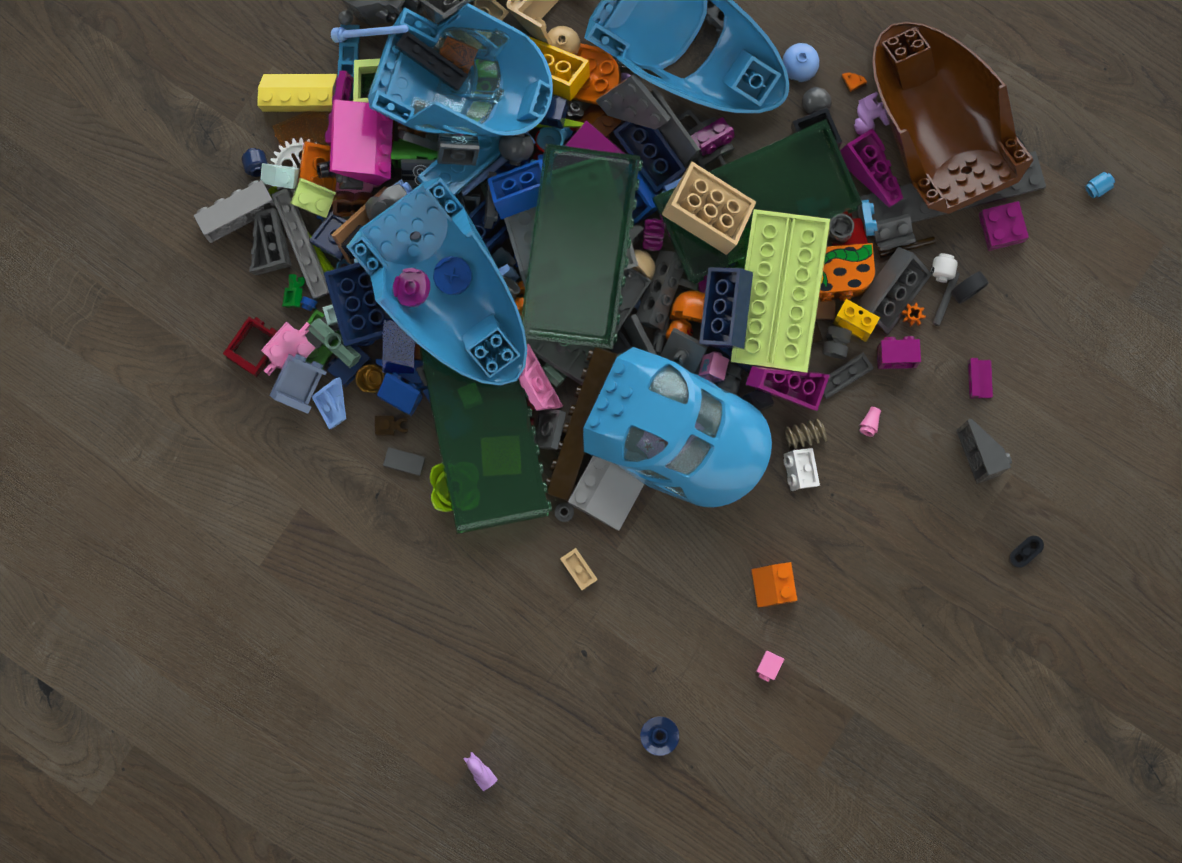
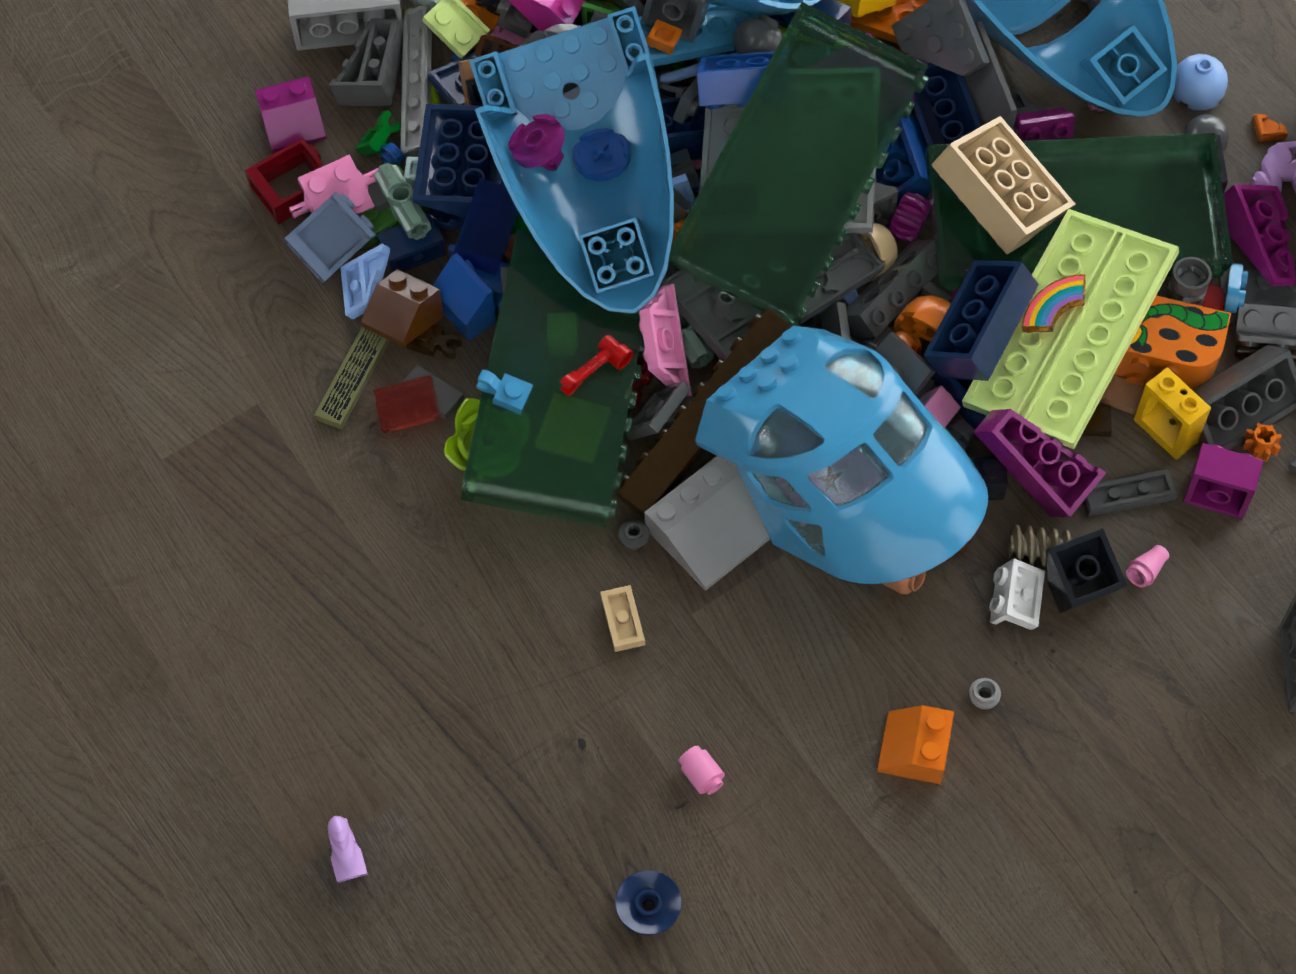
camera: 20 degrees right, 20 degrees down
(231, 298) = (290, 113): none -> magenta slope
(351, 467) = (351, 379): none -> olive tile
(365, 416) = (402, 308): none -> reddish brown slope
(370, 378) = (428, 263): pearl gold hair -> none
(394, 477) = (407, 404): none -> clear red plate
(457, 172) = (663, 37): none -> orange tile
(461, 461) = (508, 393): none -> dark azure plate
(511, 410) = (610, 351): none -> red brick
(660, 647) = (701, 770): none -> bright pink brick
(765, 280) = (1053, 302): none -> tile
(769, 666) = (864, 860): bright pink brick -> none
(807, 534) = (989, 686): none -> light grey plate
(836, 445) = (1083, 570): none -> black slope
(837, 341) = (1131, 439): dark grey wheel -> none

